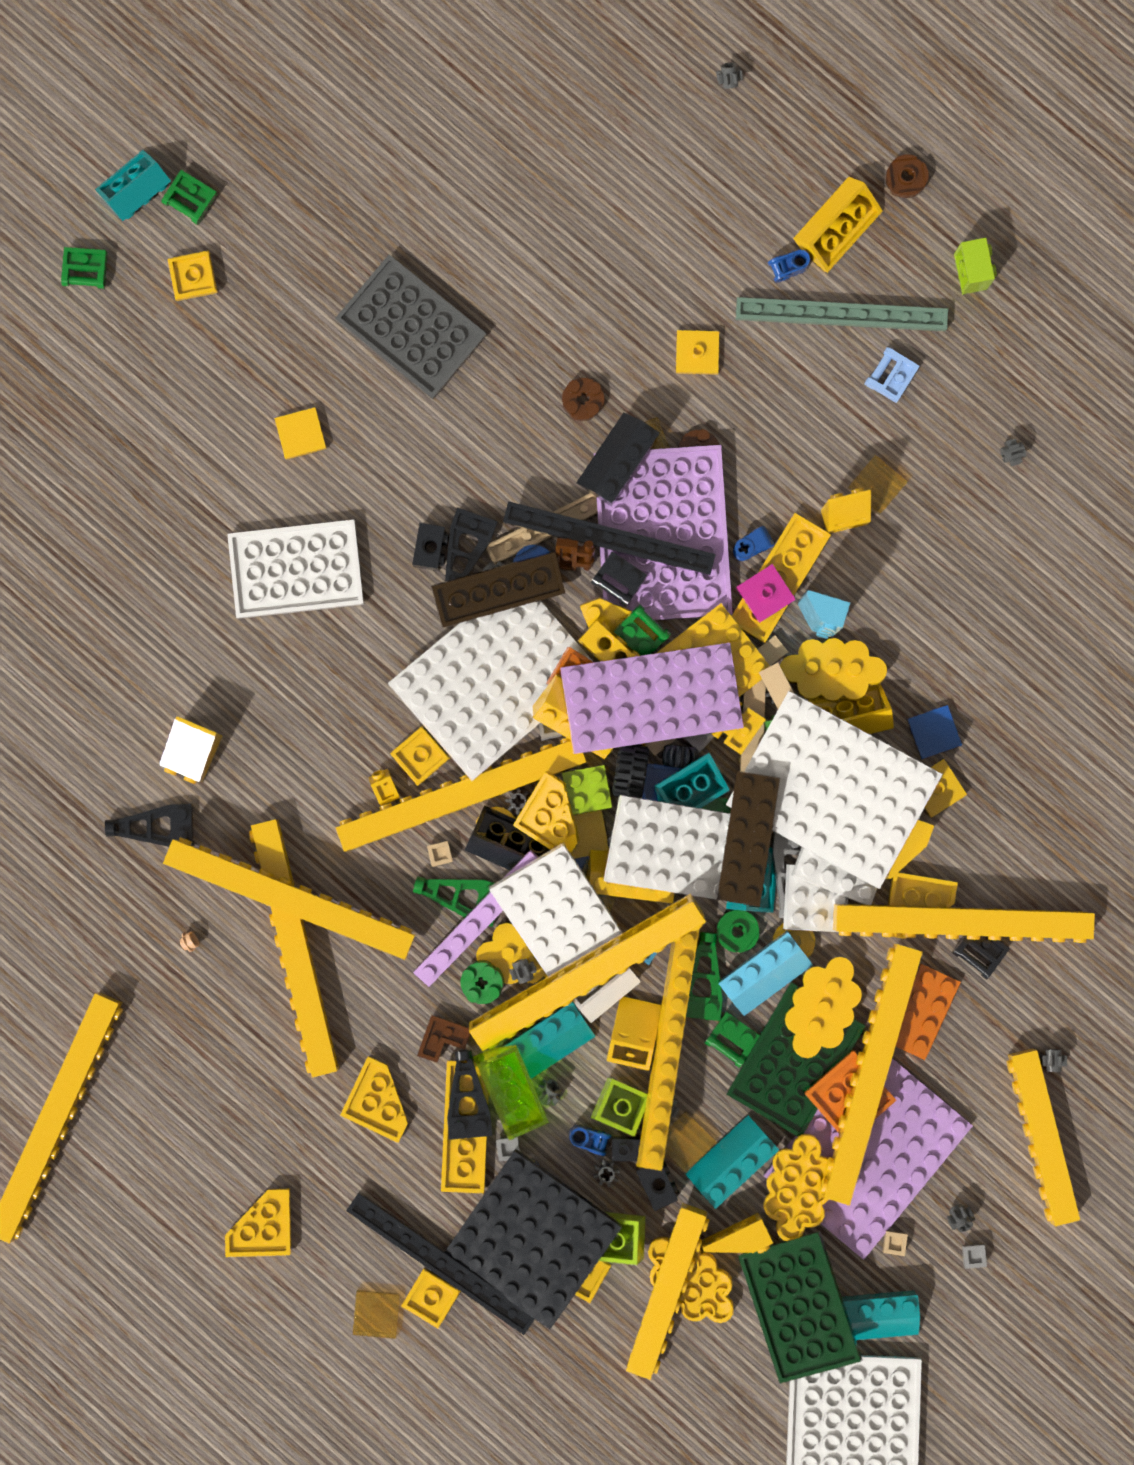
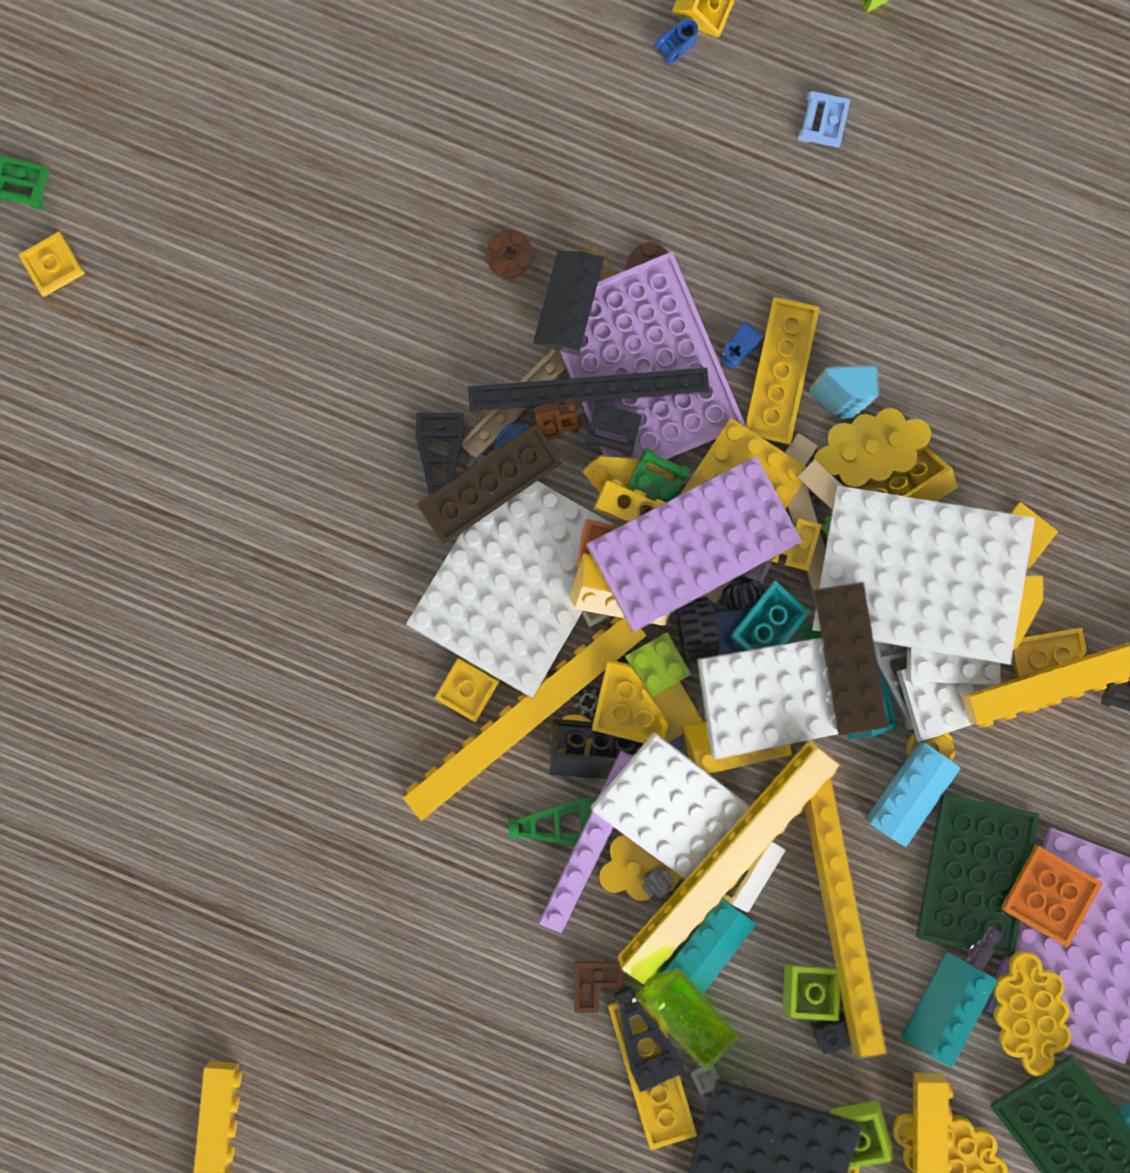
camera: 20 degrees left, 0 degrees up
(180, 825) = (237, 852): black plate -> none
(189, 941) = (288, 973): light nougat plate -> none
(190, 750) = (218, 768): slope -> none
(289, 899) = (378, 893): yellow brick -> none
(295, 569) = (266, 536): white plate -> none
(296, 957) = (404, 943): yellow brick -> none
(300, 433) = (223, 391): yellow tile -> none
(376, 1102) = (548, 1077): yellow plate -> none
(383, 787) = (439, 736): yellow bracket -> none
(411, 326) = (301, 239): dark grey plate -> none
(426, 534) = (393, 452): black brick -> none
(440, 853) = (524, 786): tan plate -> none
(488, 972) = (613, 921): green plate -> none
(549, 1092) = (729, 1002): dark grey gear -> none
(591, 1139) = (794, 1037): blue piece -> none
(611, 1176) = (825, 1073): dark grey gear -> none
(634, 1033) = (798, 908): yellow slope -> none
(658, 1197) = (886, 1073): black brick -> none
(687, 1142) = (895, 1002): clear yellow tile -> none
(697, 352) = (612, 165): yellow plate -> none
(706, 1007) = (866, 850): green plate -> none
(736, 1033) = (905, 868): green plate -> none
(738, 943) = (874, 771): green plate -> none
(742, 1237) = (987, 1090): yellow slope -> none
(765, 593) = (773, 391): dark pink plate -> none
(773, 1122) = (982, 951): none -> clear purple plate
(823, 1007) = (988, 810): yellow plate -> none
(841, 314) = (749, 74): sand green plate -> none
(847, 511) = (830, 274): yellow slope -> none
(871, 1074) = (1068, 867): yellow brick -> none
(882, 482) = (849, 239): clear yellow tile -> none
(926, 1010) = (1092, 777): orange plate -> none
(934, 732) = (999, 477): blue tile -> none
(1013, 452) = (979, 156): dark grey gear -> none

